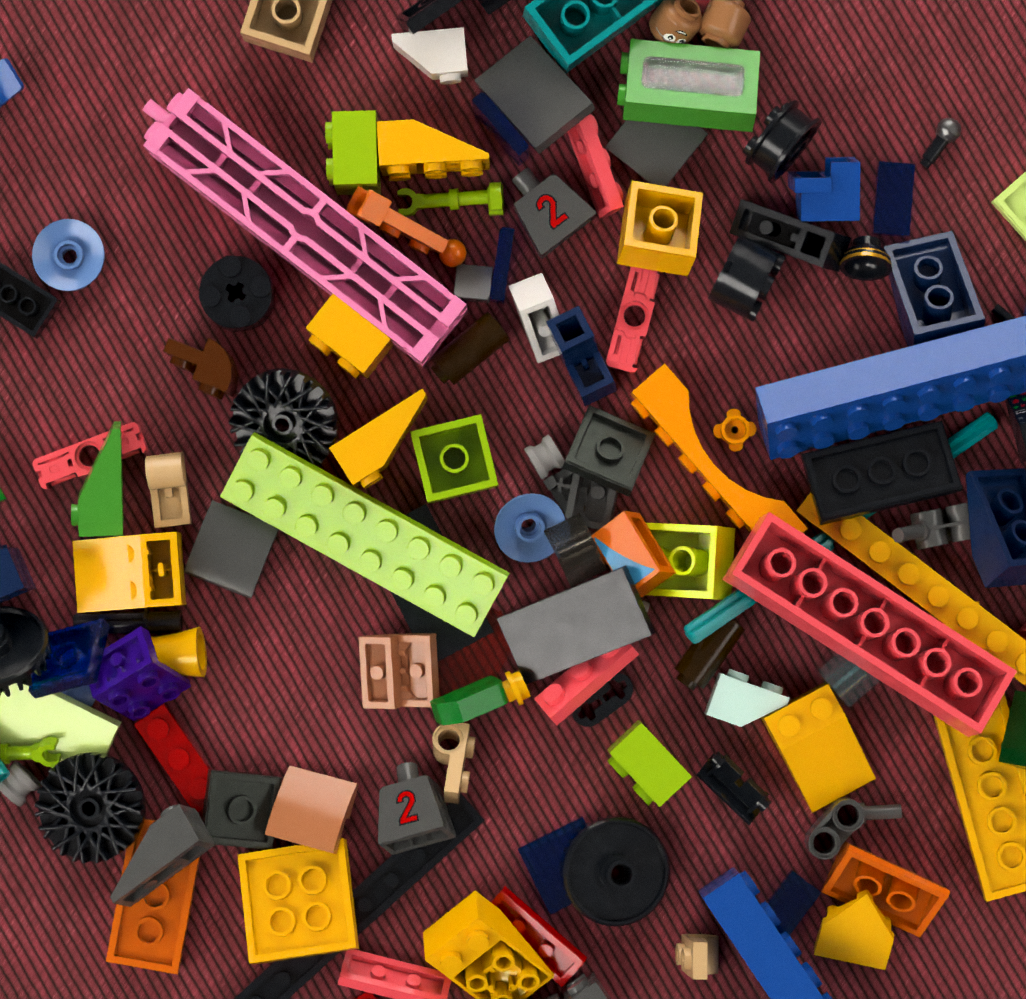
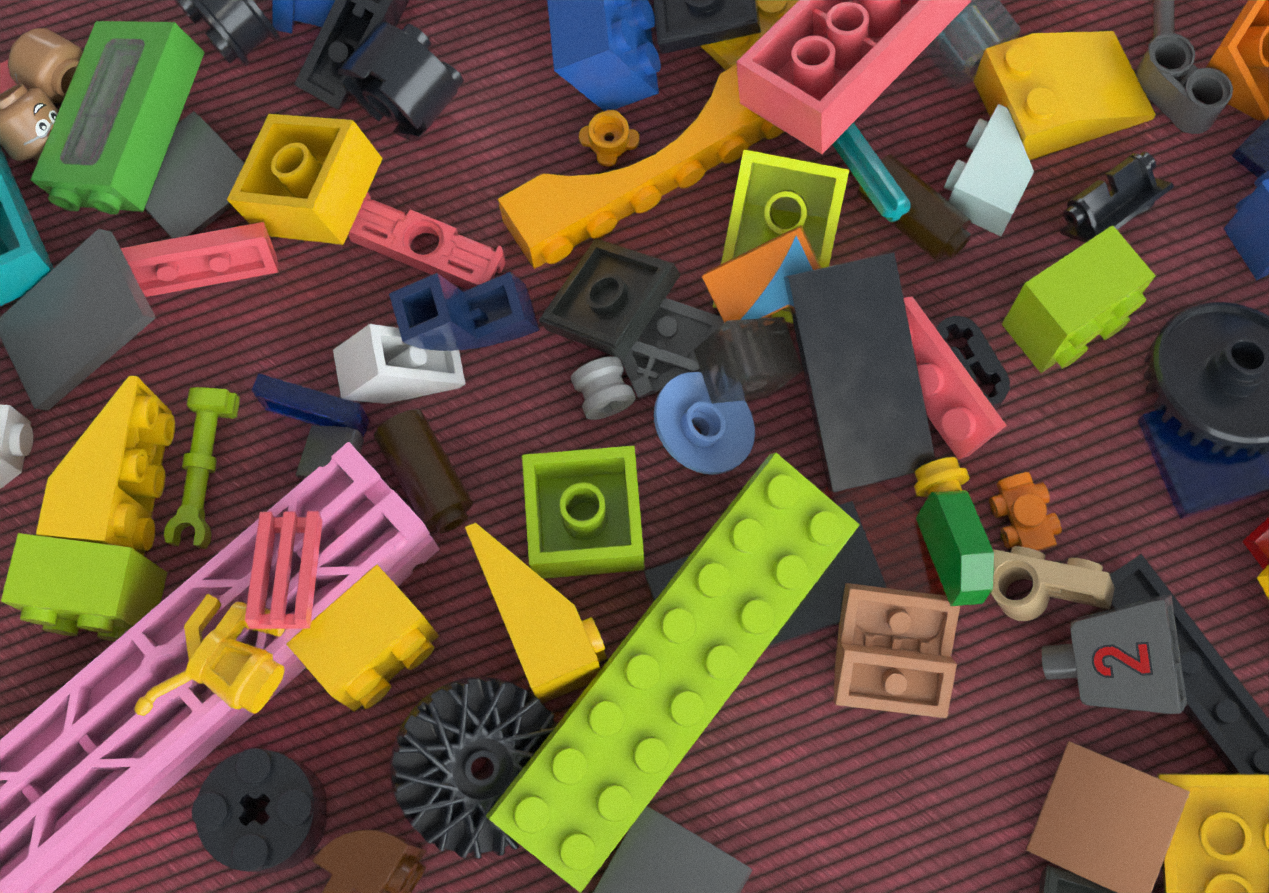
camera: 75 degrees left, 15 degrees down
(310, 265) = (231, 669): none -> yellow piece
(375, 210) = (178, 556): orange plate -> none
(405, 280) = (259, 581): none -> coral tile
(496, 749) = (1027, 512): none -> orange piece
(500, 128) = (95, 371): clear blue tile -> none
(549, 211) = (247, 330): dark grey torso -> none

